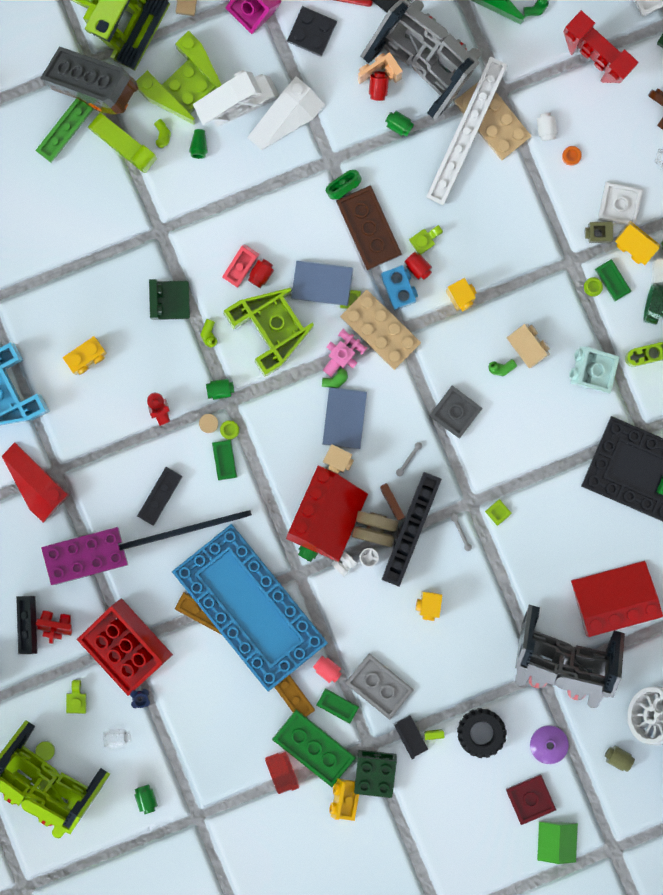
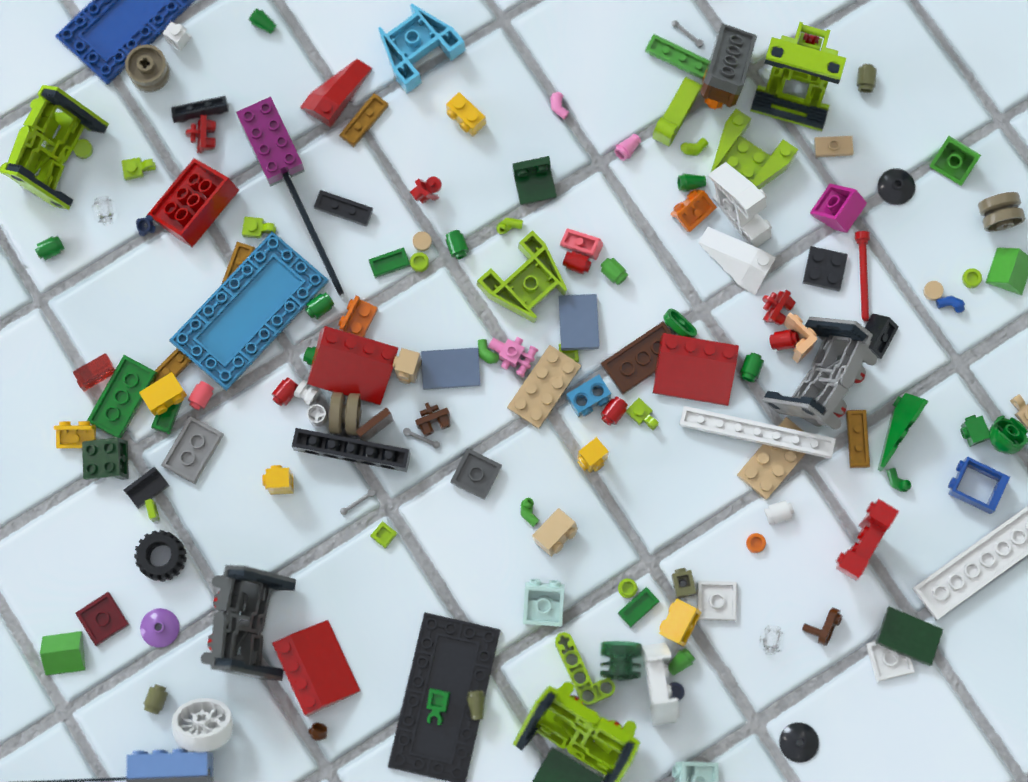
camera: 85 degrees right, 10 degrees down
(51, 107) = (699, 42): none -> light grey hinge
(69, 460) = (364, 120): none -> pearl gold tile
(90, 262) = (556, 105): none -> bright pink arm
(150, 200) = (627, 147): none -> bright pink cone
(162, 588) = (254, 227): none -> lime plate
(227, 147) = (693, 209): none -> orange bracket
(257, 536) = (319, 306): none -> green brick
(276, 238) = (614, 271): none -> bright green brick
(277, 500) = (358, 317): none -> orange bracket
(322, 706) = (163, 394): none -> yellow brick
(339, 585) = (284, 392): none -> red brick
(341, 86) = (774, 304): none -> red hips
(392, 178) = (695, 369): none -> red slope
(397, 453) = (441, 416): none -> reddish brown hips
(488, 36) = (857, 439): none -> pearl gold tile

